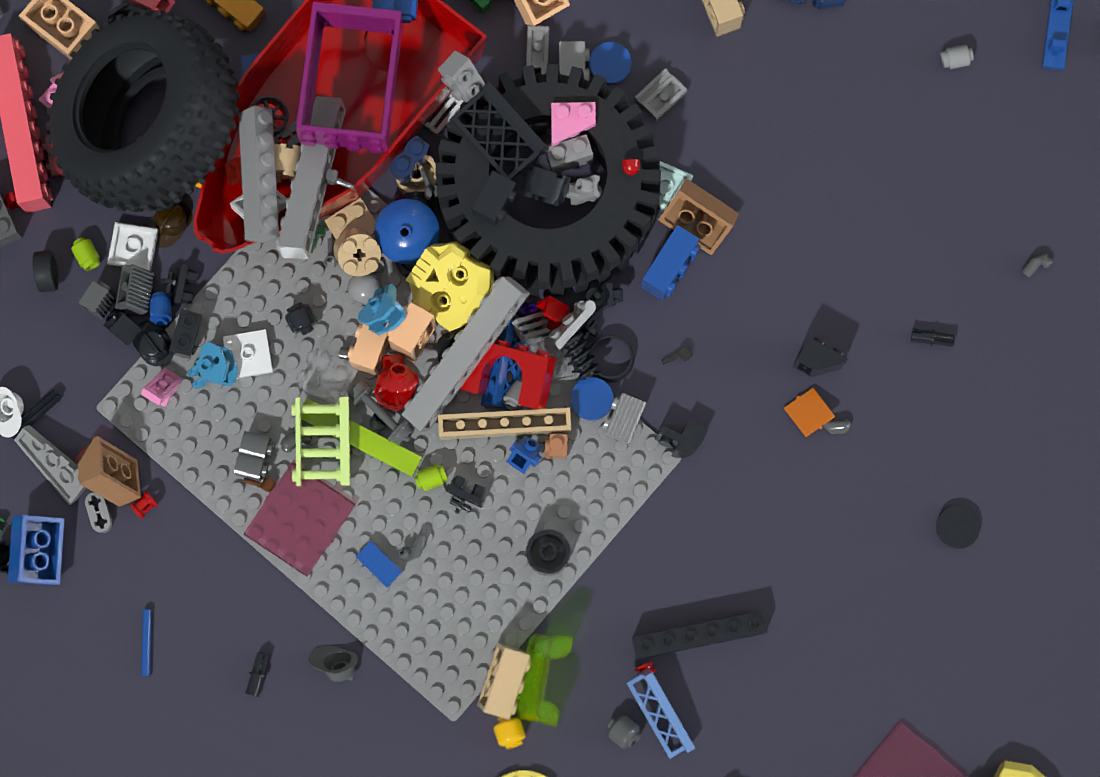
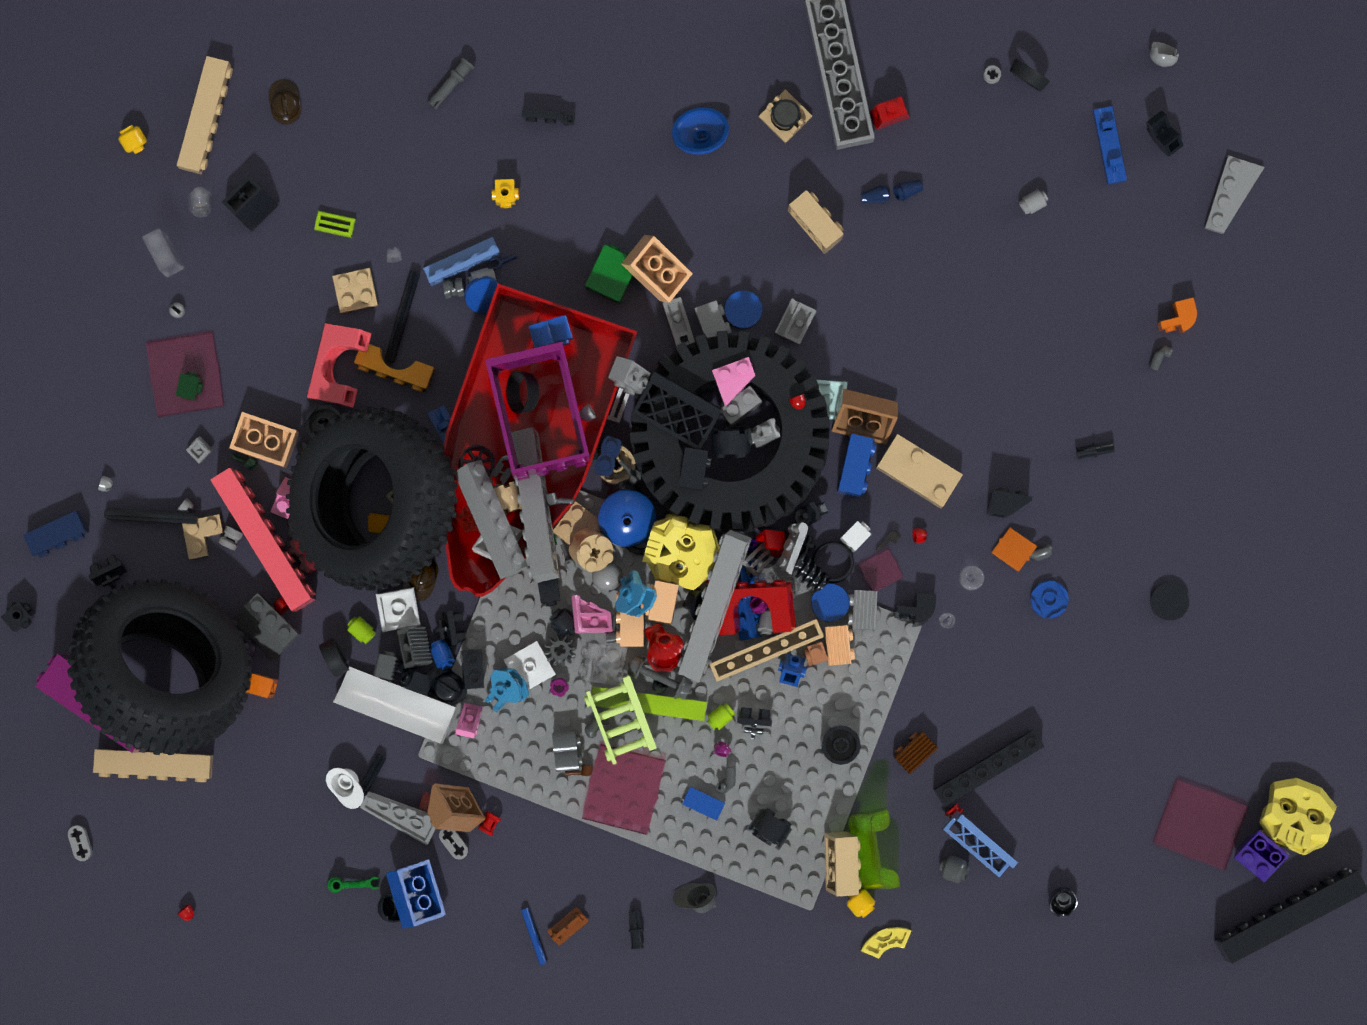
camera: 20 degrees left, 5 degrees up
(36, 42) = (250, 463): none -> clear green hand
(92, 345) = (395, 705): none -> white arch
(186, 645) = (567, 926): none -> dark orange hinge
(271, 392) = (559, 692): none -> magenta plate
(286, 355) = (562, 657): none -> dark grey gear
(297, 281) = (549, 592): none -> black brick
(330, 323) = (589, 617): none -> bright pink wing
(336, 55) = (513, 392): none -> black tyre
(402, 100) = (587, 413): none -> light grey hinge
(419, 513) = (722, 749): none -> magenta plate
(439, 614) = (769, 828): none -> black brick
(513, 372) = (757, 605): none -> magenta plate
(584, 446) = (838, 645): none -> light nougat brick
(626, 590) = (915, 752): none -> reddish brown brick
(644, 337) = (856, 536): none -> white brick
(658, 385) = (880, 571): none -> clear pink piece
(711, 466) = (949, 623): none -> clear hinge
(712, 362) = (919, 535): none -> red hinge
(736, 294) = (919, 471): none -> tan brick
(755, 418) = (977, 574): none -> clear head
(828, 479) = (1049, 599): none -> blue tile
(1077, 230) = (1185, 316): none -> orange brick

